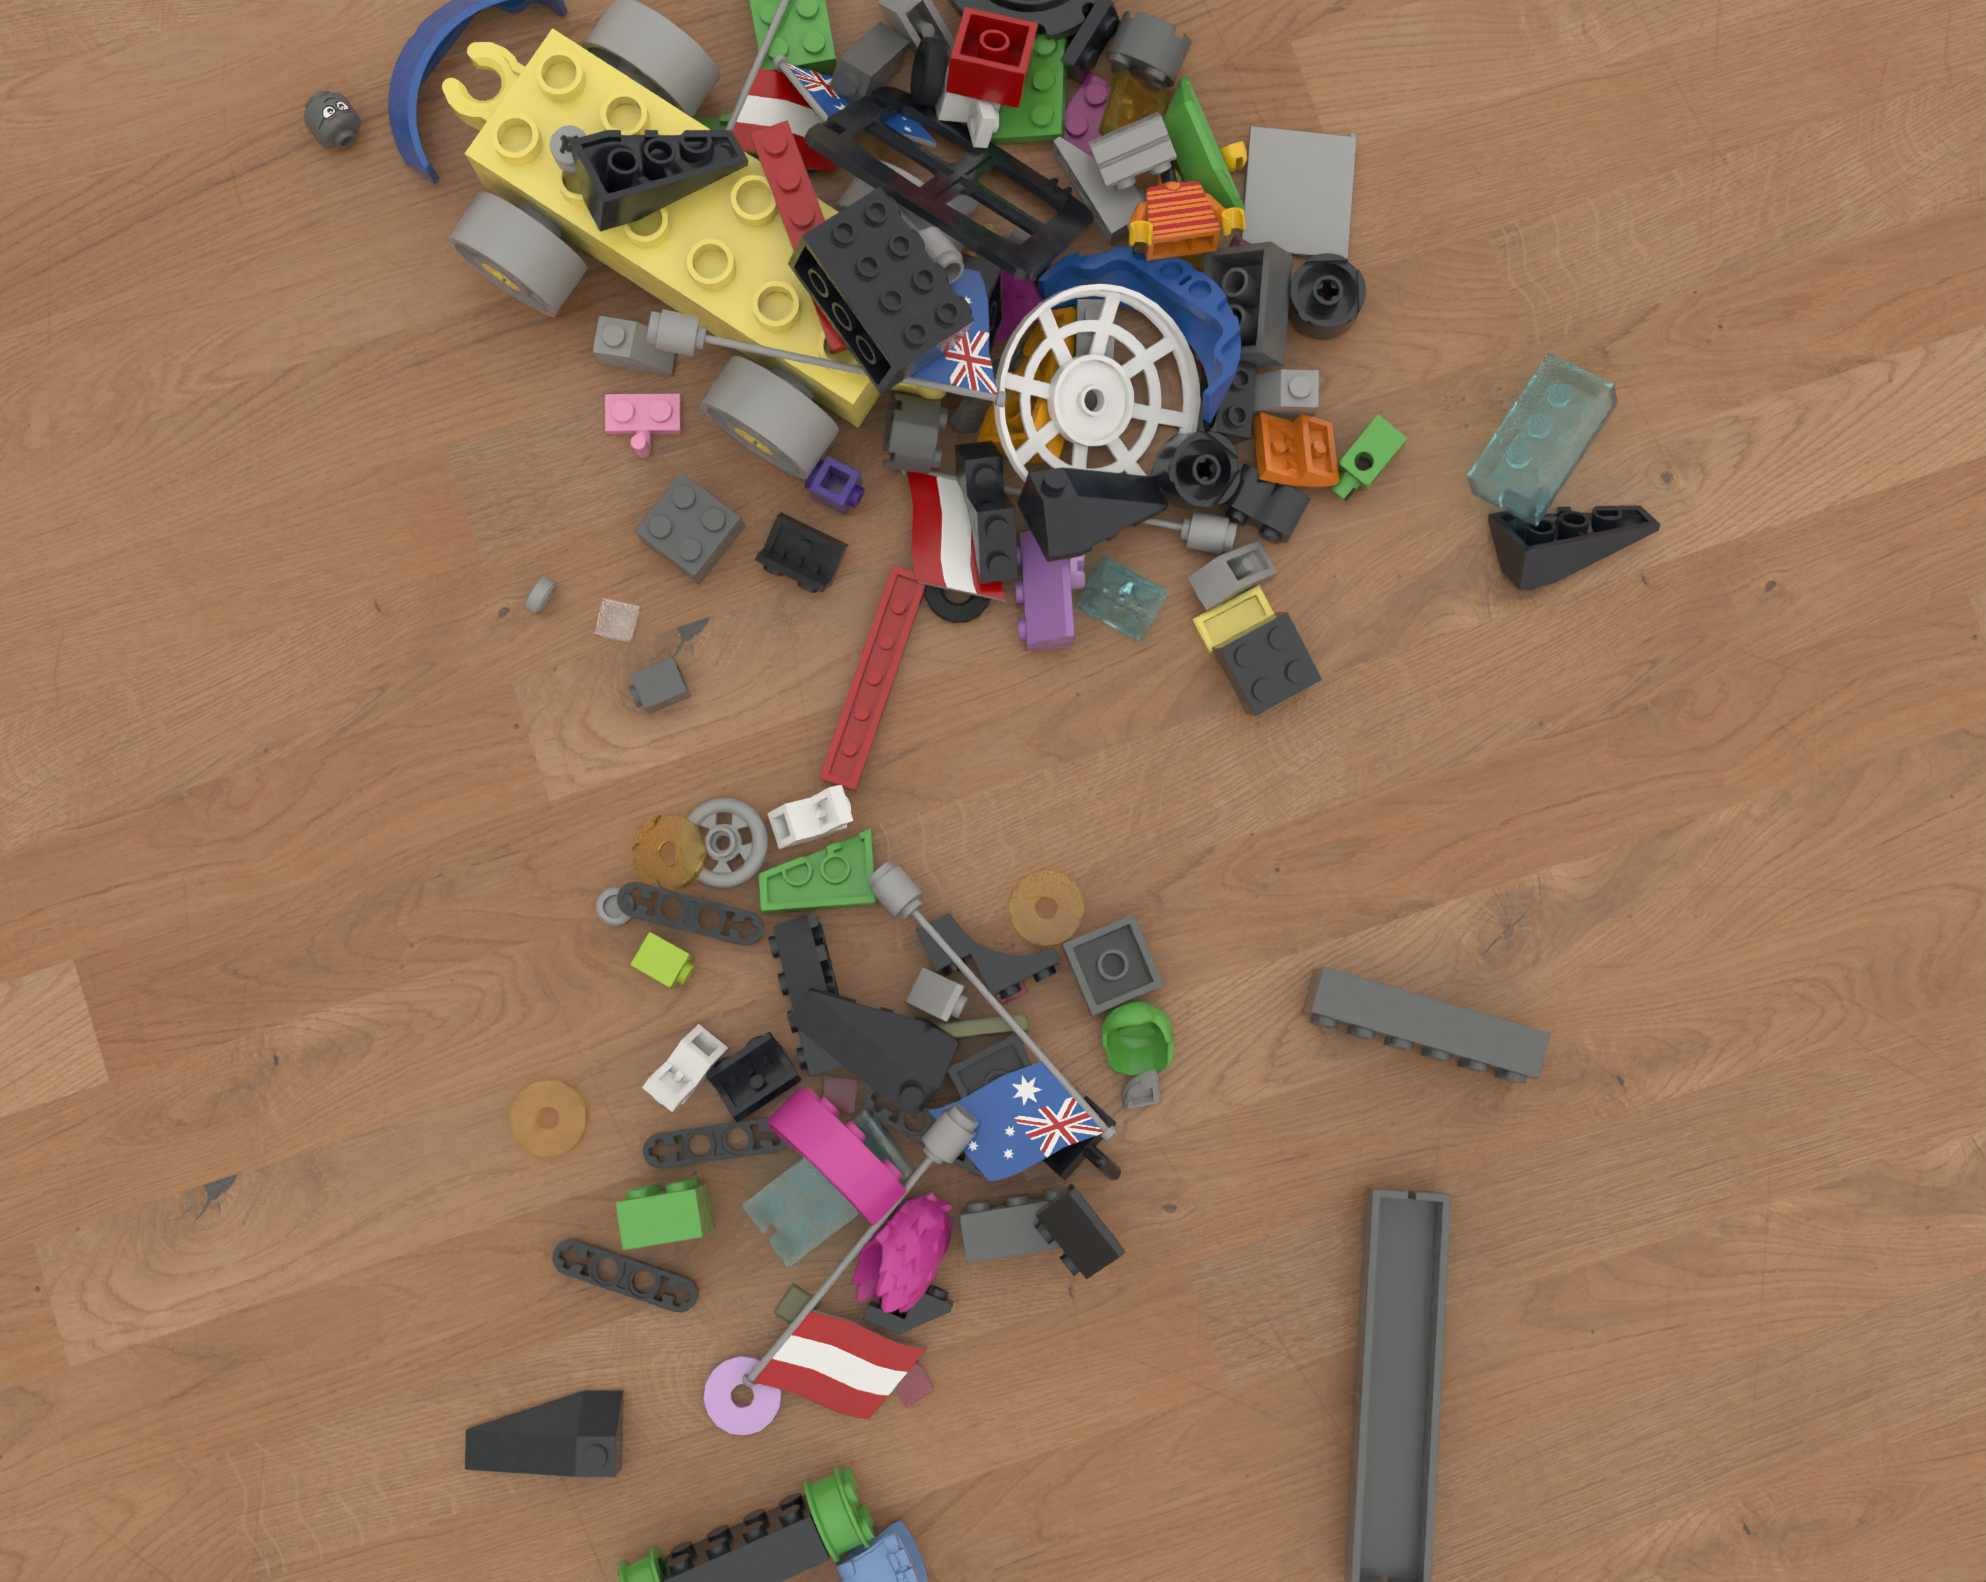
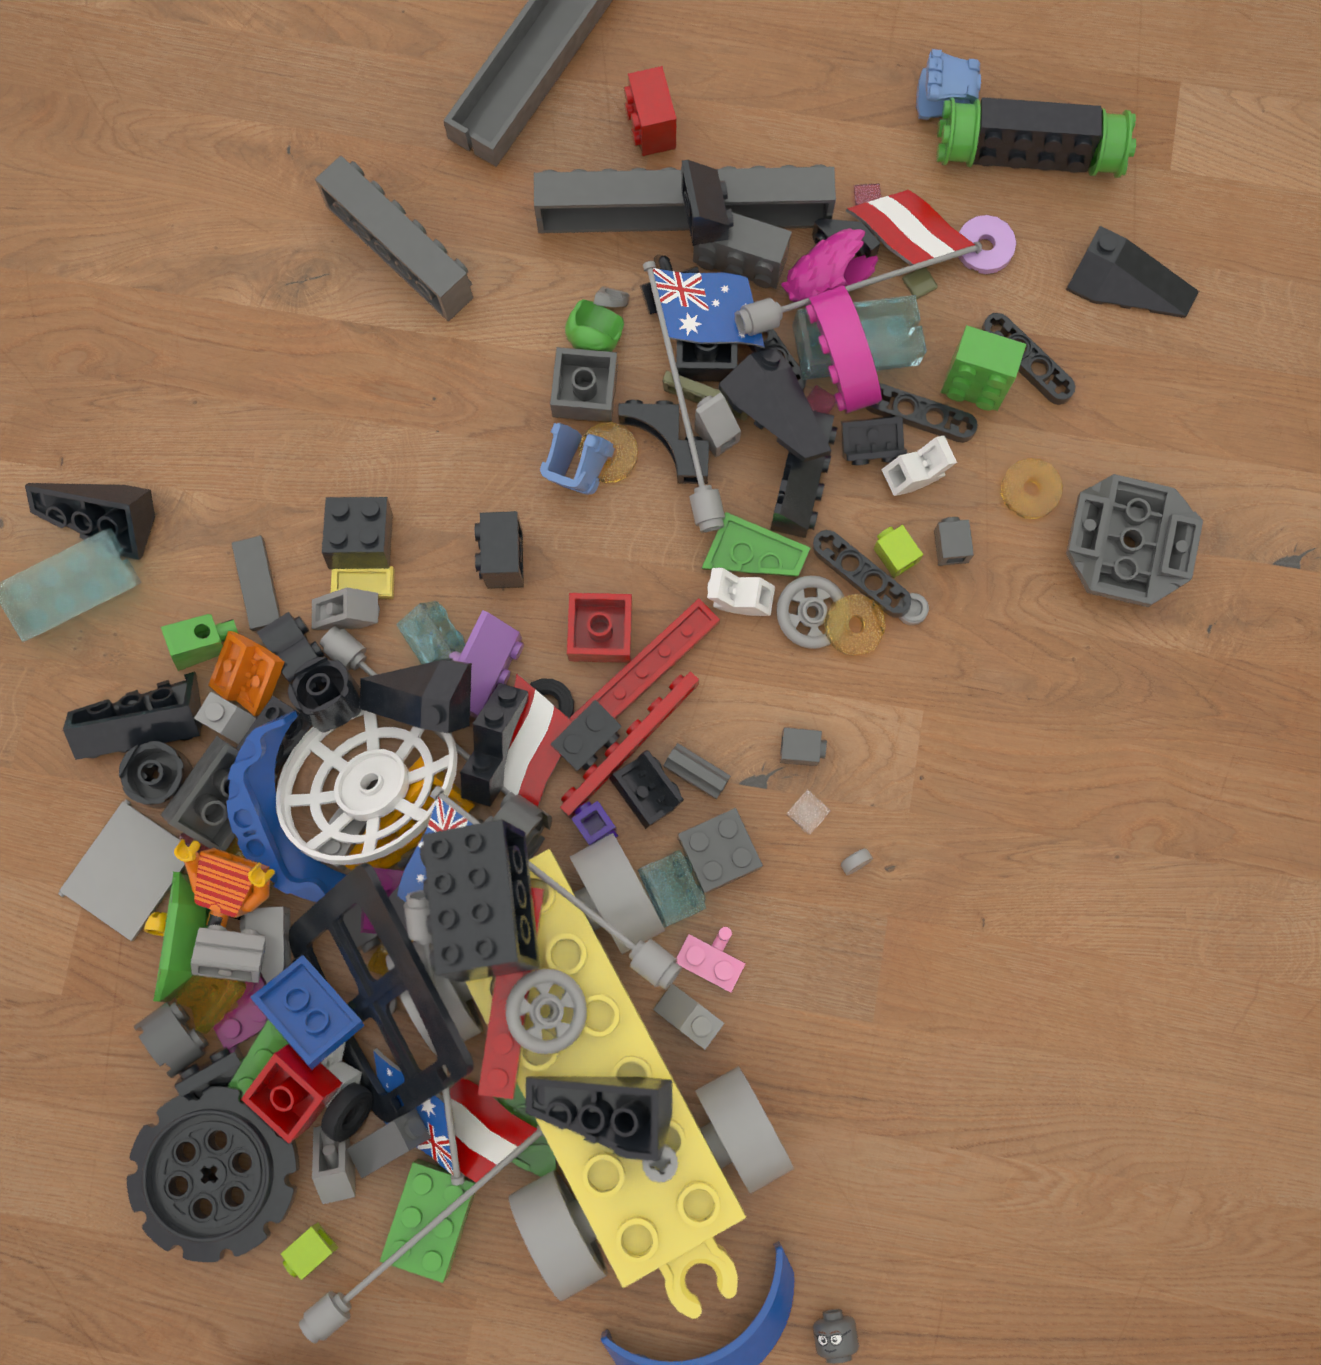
camera: 150 degrees left, 5 degrees down
(363, 1112) = (1158, 523): none -> dark grey piece
(606, 1004) = (953, 541): none -> dark grey brick
(720, 465) = (672, 888): none -> clear light blue bracket
(732, 224) = (565, 1033): none -> light grey plate
(758, 602) = (696, 771): none -> dark grey axle
(851, 577) = (637, 733): none -> red plate
(894, 573) = (586, 736): none -> black bracket
(944, 697) = (599, 627): none -> red brick
(1021, 138) = (307, 1012): none -> blue plate
(1087, 842) = (562, 450): none -> medium blue piece
(1098, 723) = (500, 549): none -> black brick
(1146, 1234) = (654, 200): none -> dark grey piece
(1220, 1349) = (651, 111): none -> brick
(1347, 557) = (256, 582): none -> dark grey tile
(1381, 345) = (135, 719): none -> black wedge

